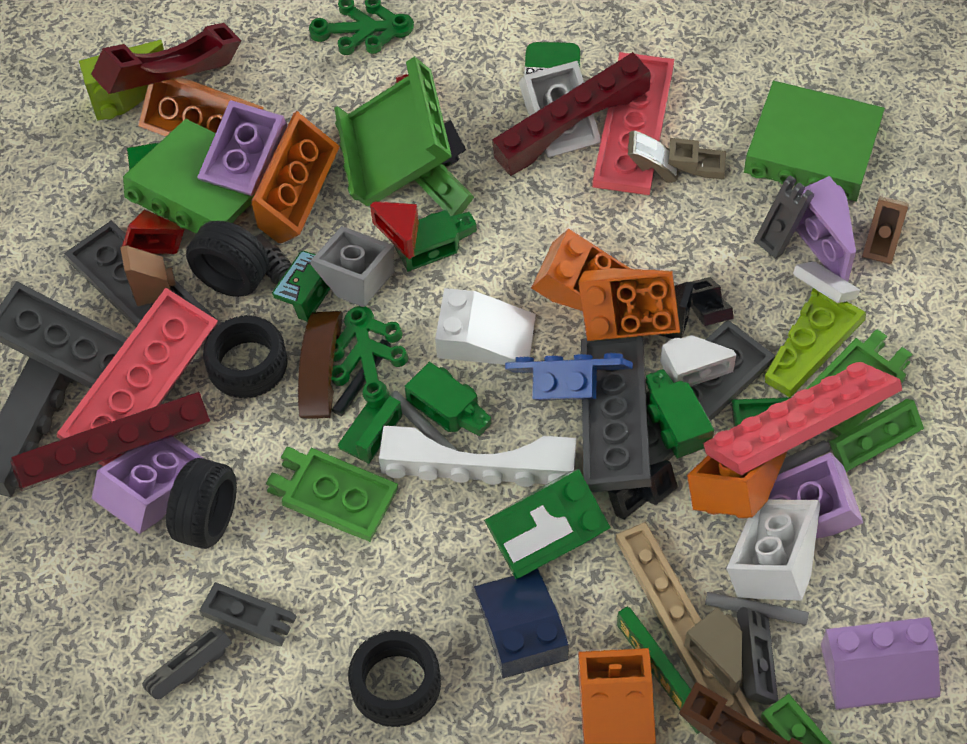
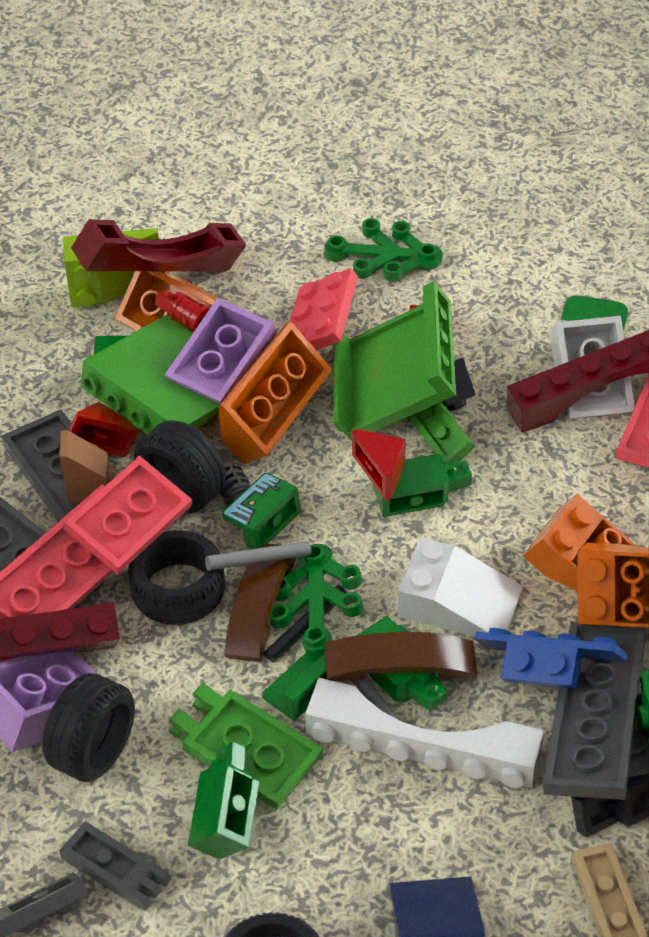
camera: 10 degrees right, 10 degrees down
(194, 311) = (128, 514): none -> coral plate
(199, 112) = (182, 308): none -> red hinge
(311, 327) = (257, 555): none -> light grey bar
(321, 90) = (324, 308): none -> coral plate
(327, 547) = (224, 805): none -> green hinge
(354, 265) = (322, 497): light grey slope -> none
(445, 394) = (400, 653): none -> reddish brown slope
(547, 523) = (490, 822): green slope -> none

